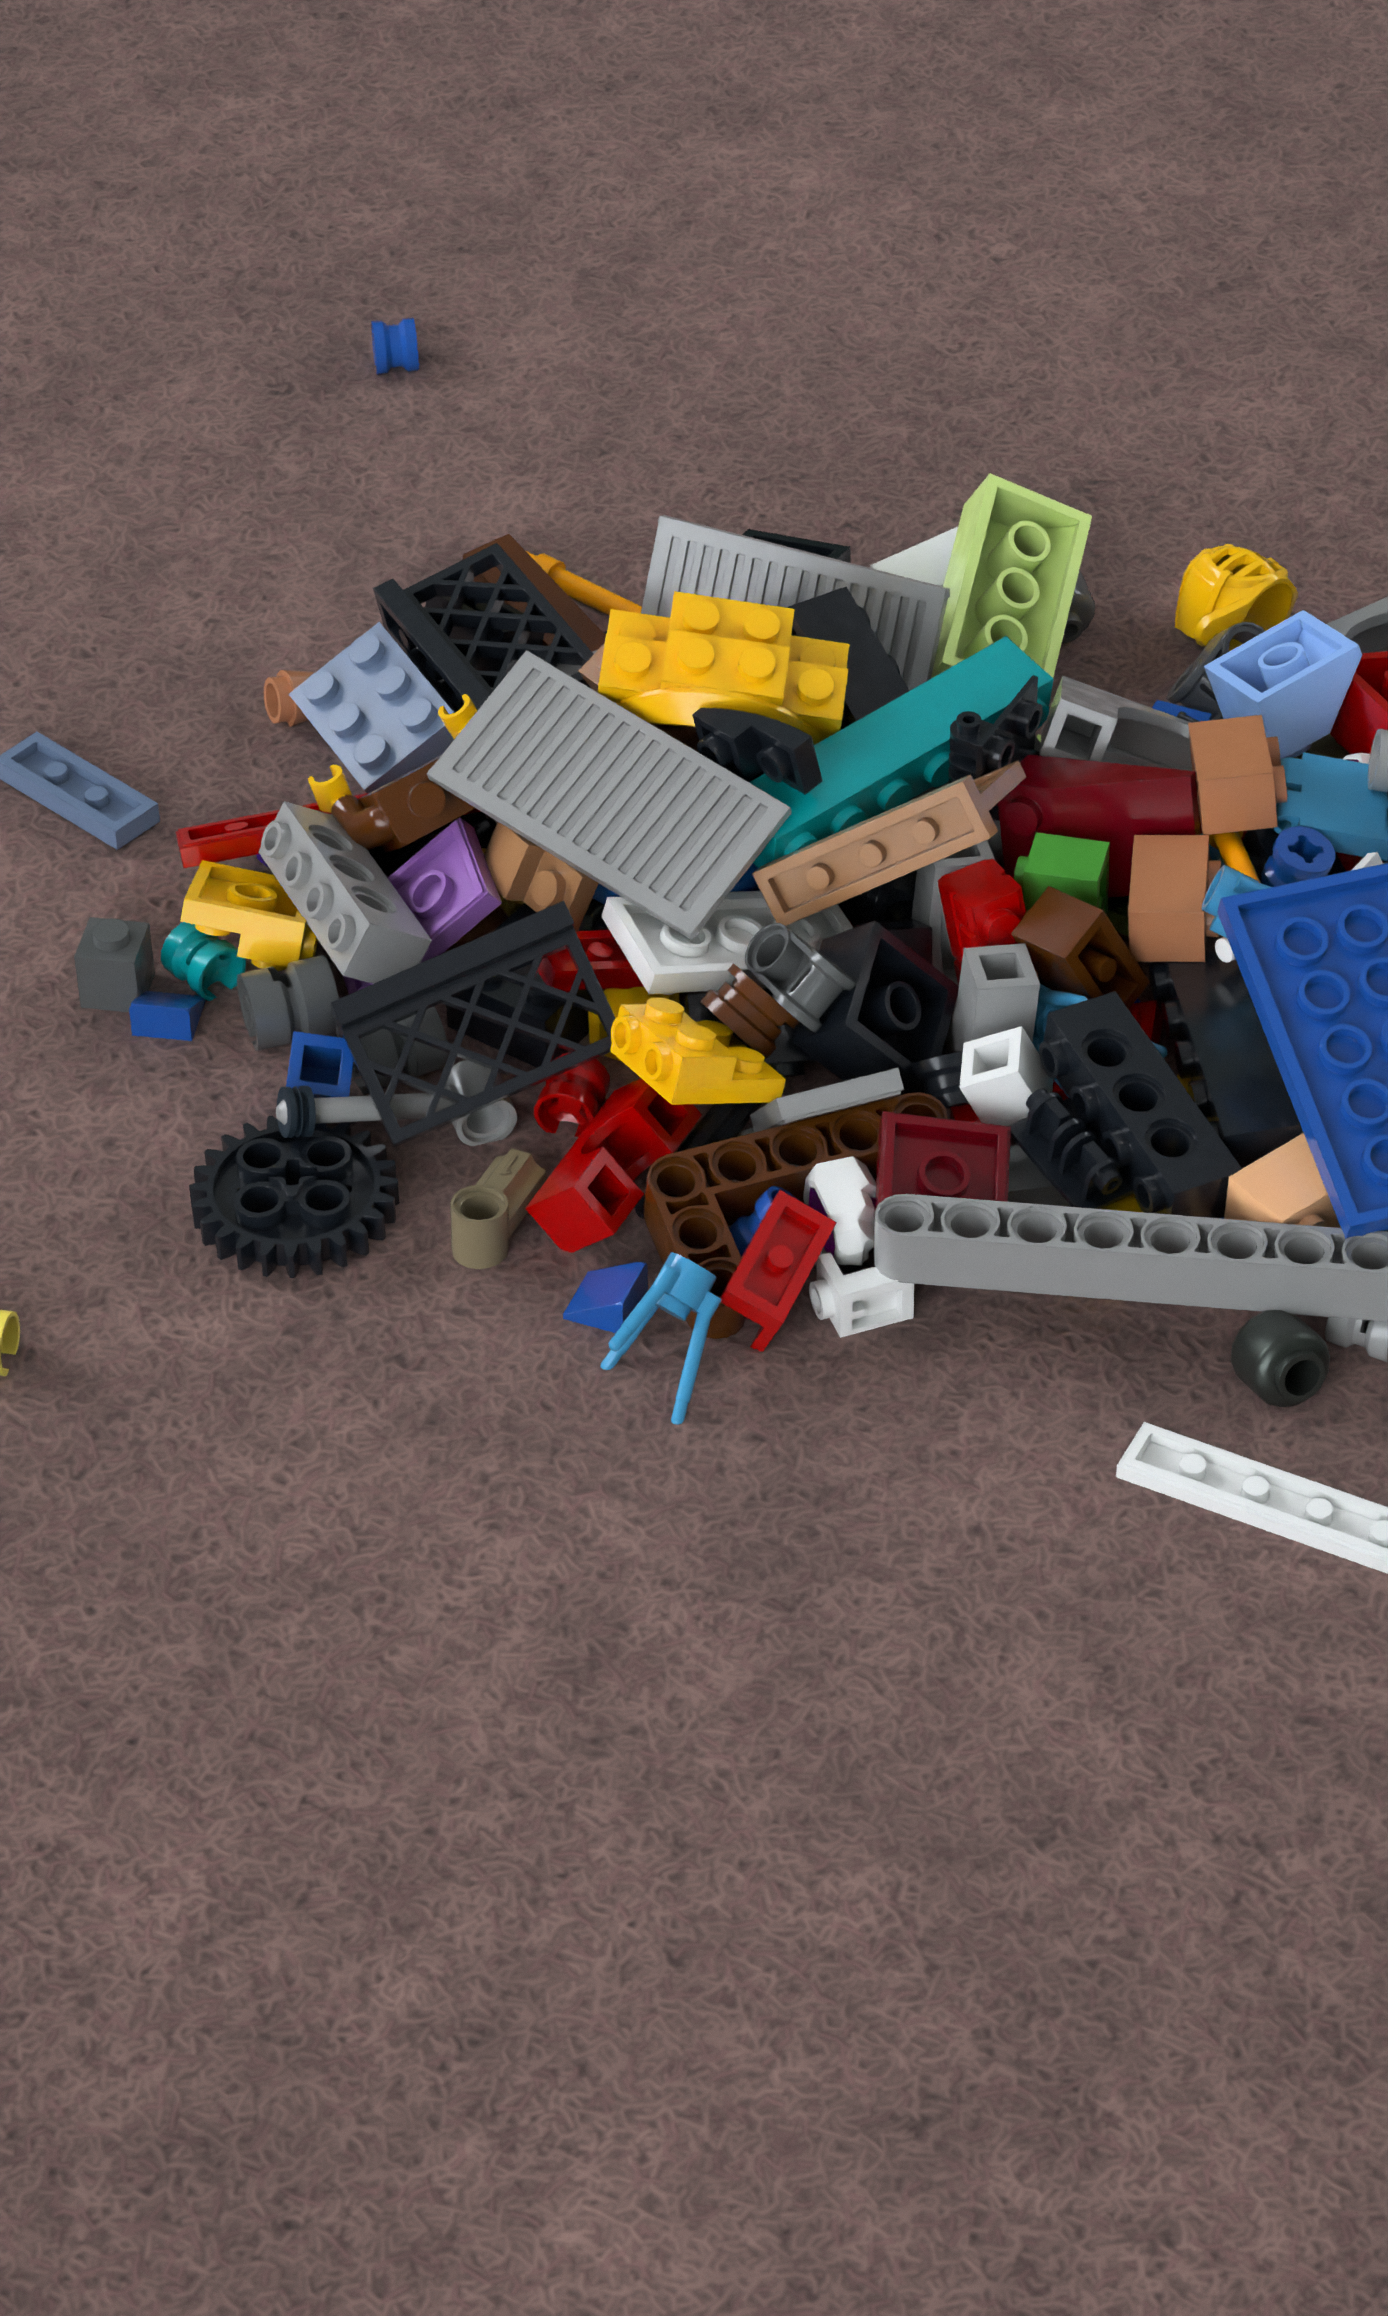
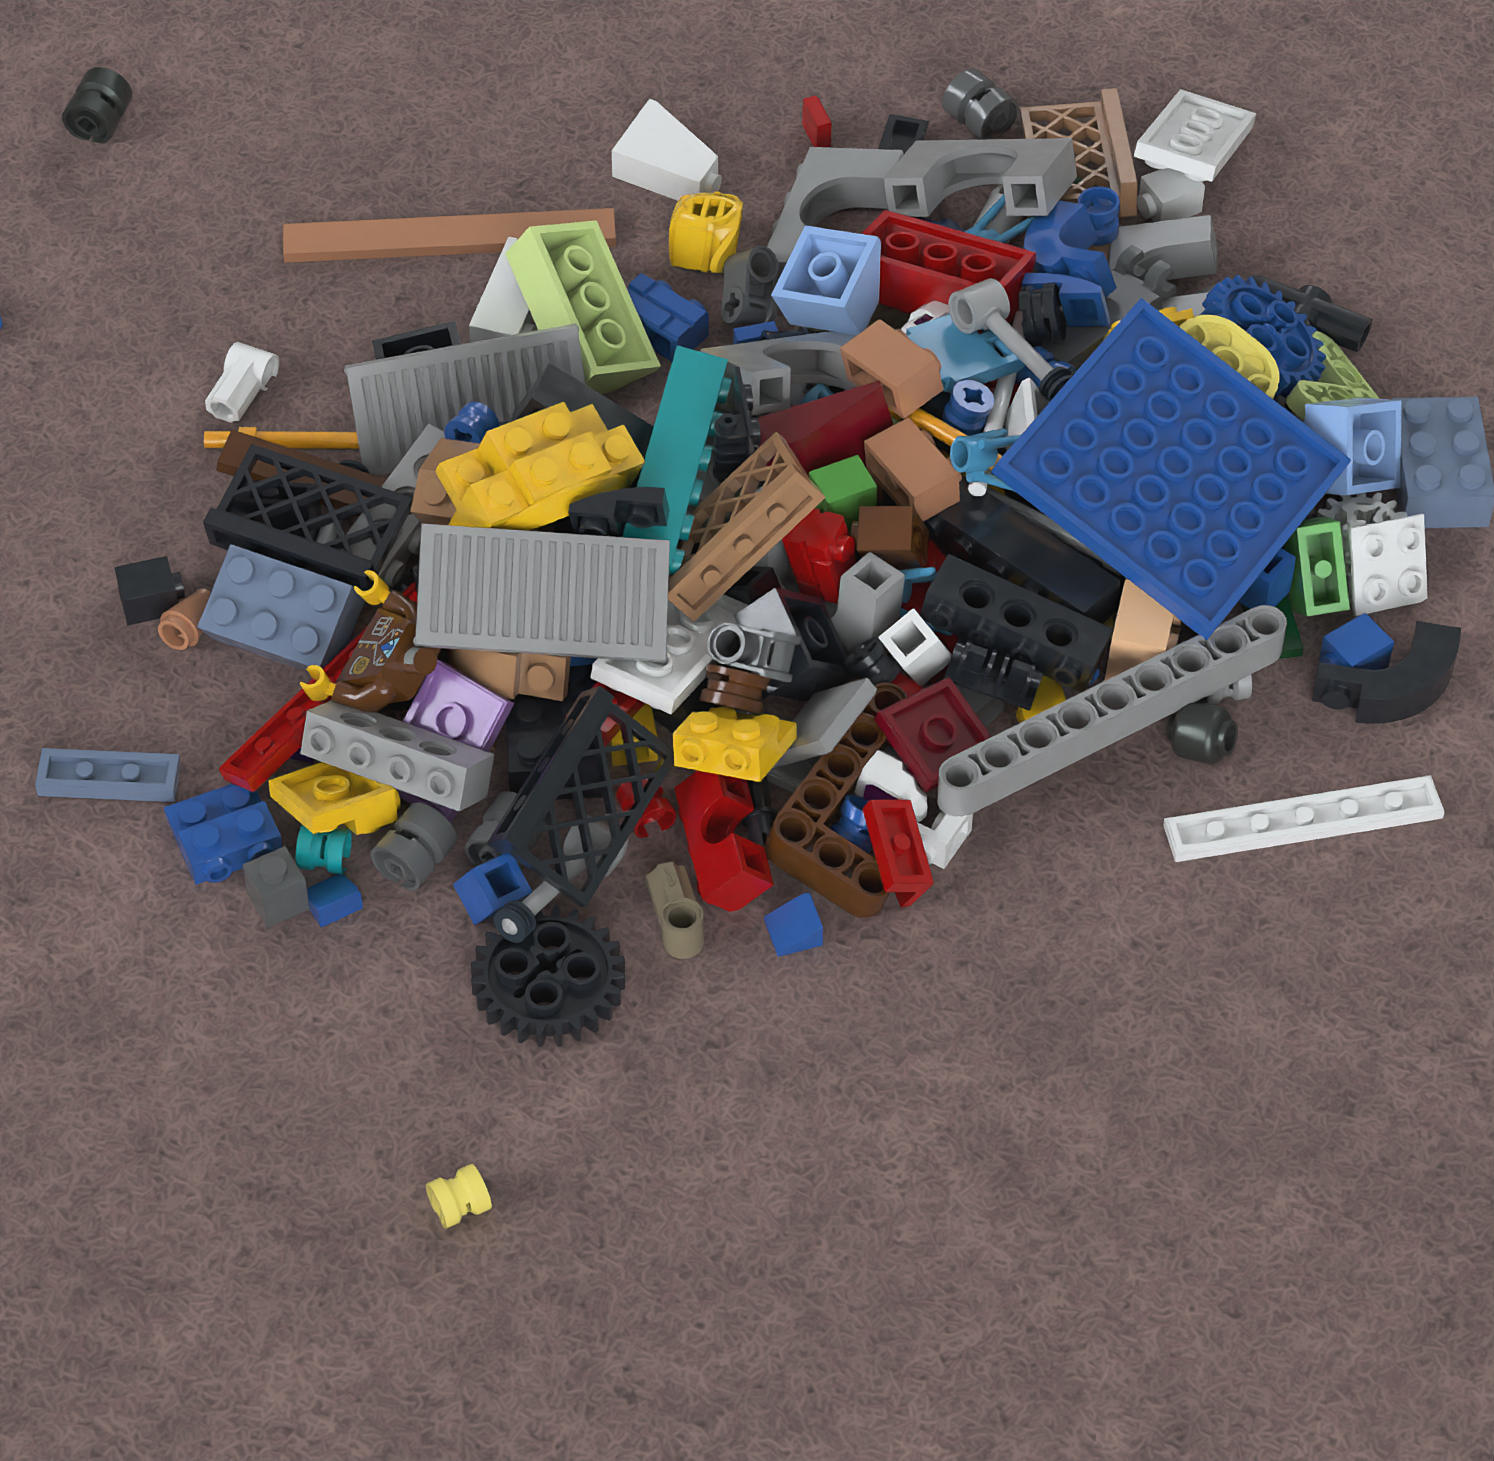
camera: 40 degrees left, 10 degrees up
(126, 888) = (222, 831): none -> blue plate
(289, 642) = (148, 589): none -> black brick
(605, 510) = (244, 374): none -> white piece
(678, 1291) = (864, 900): dark azure plant -> none
(718, 215) = (97, 105): none -> pearl dark grey wheel
(939, 481) = (425, 234): none -> nougat tile
(1105, 653) = (668, 316): none -> blue brick
(1270, 512) = (664, 156): none -> white slope

